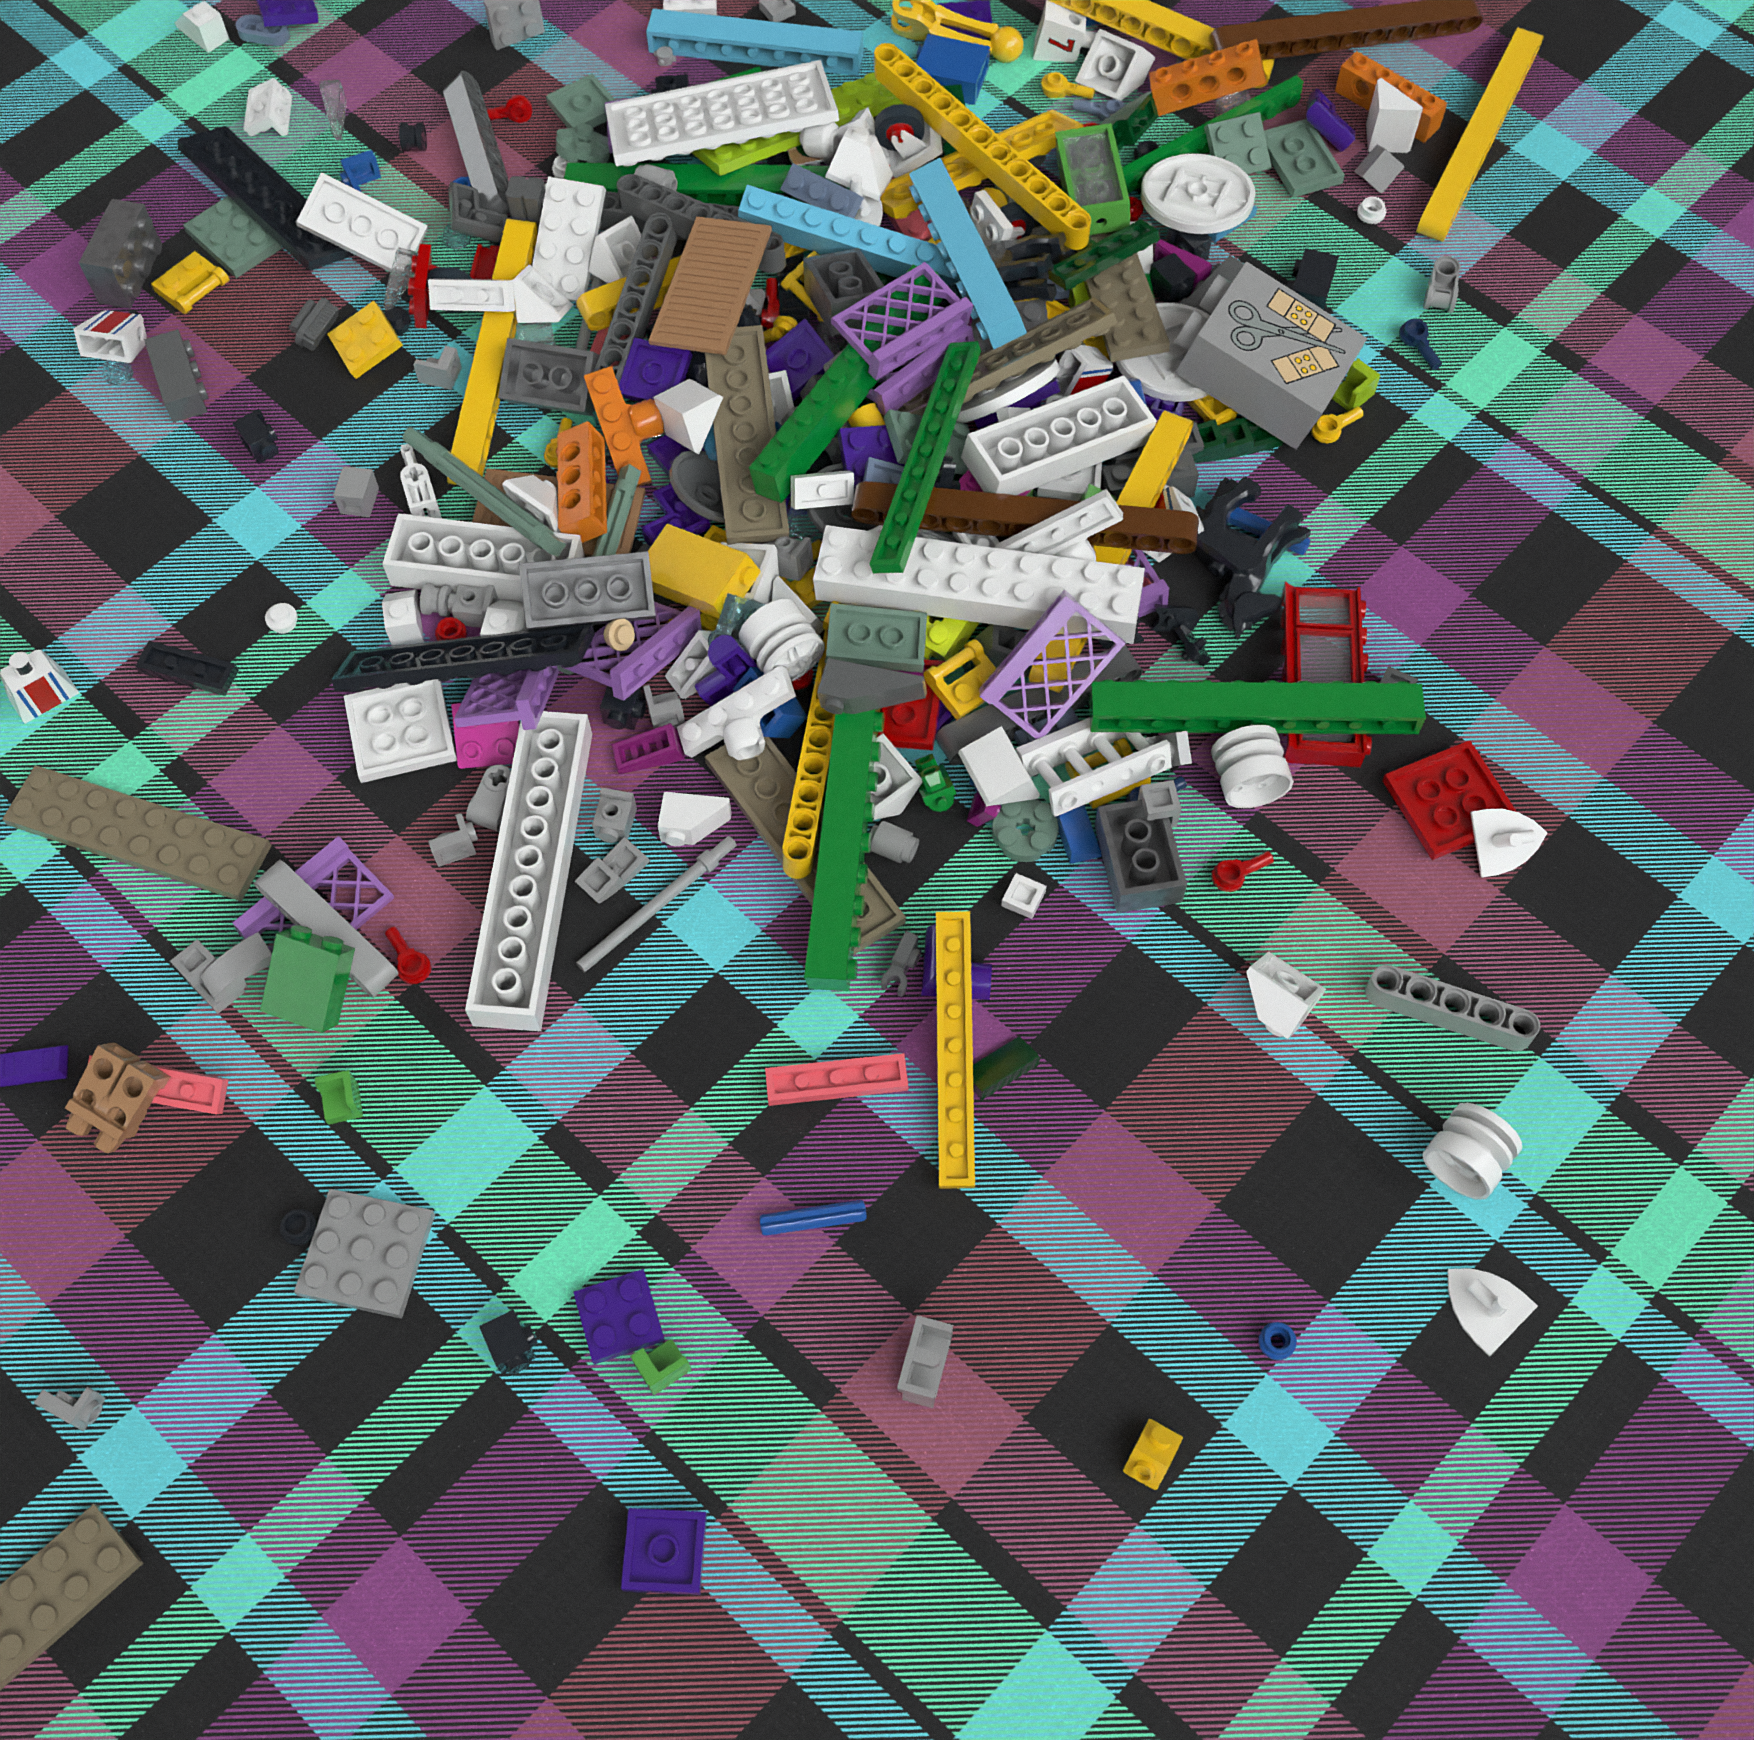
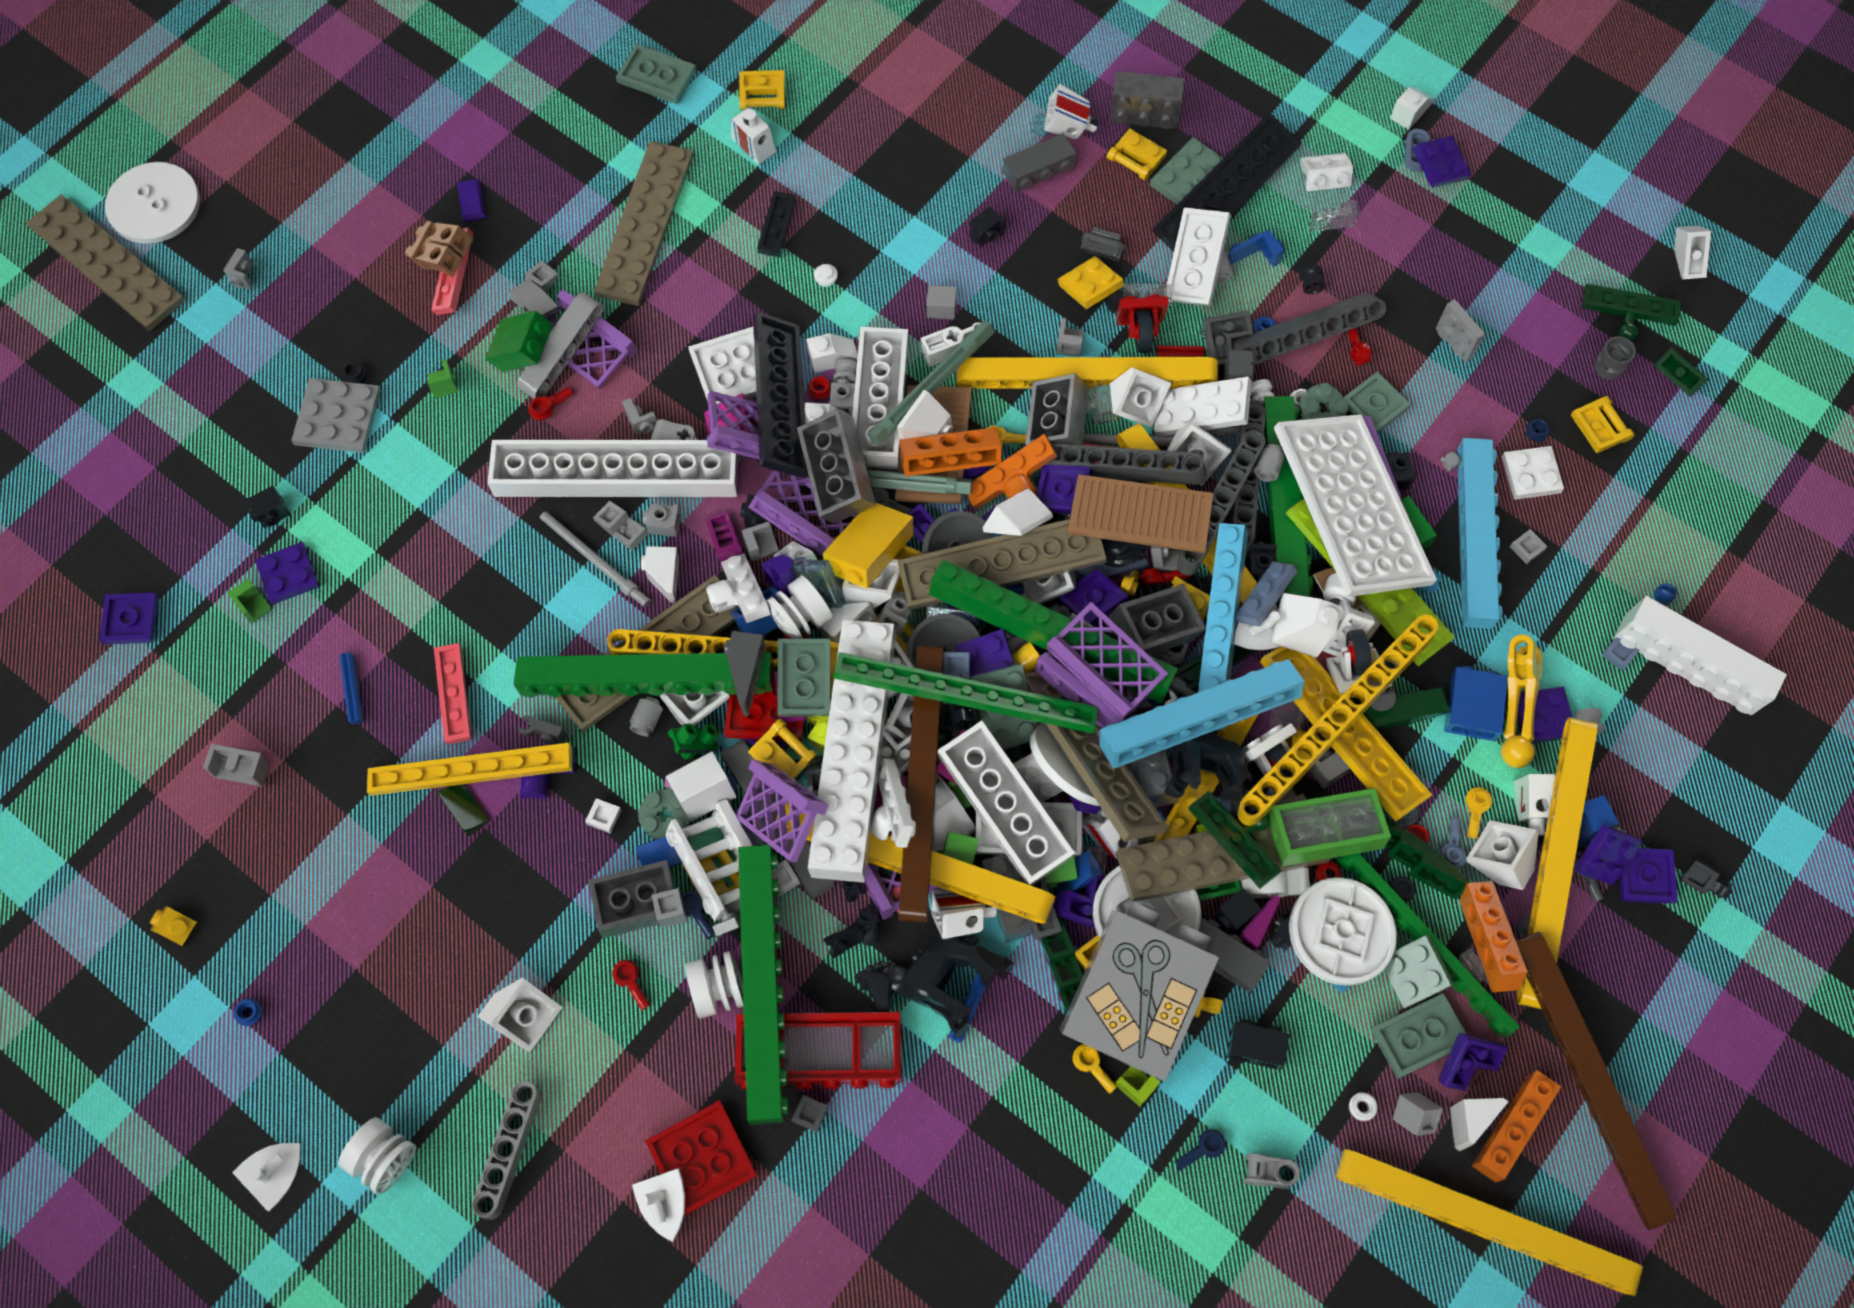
camera: 85 degrees right, 5 degrees up
(471, 295) = (1123, 343): white plate -> none
(619, 634) = (801, 494): tan plate -> none
(822, 489) = (941, 622): white plate -> none

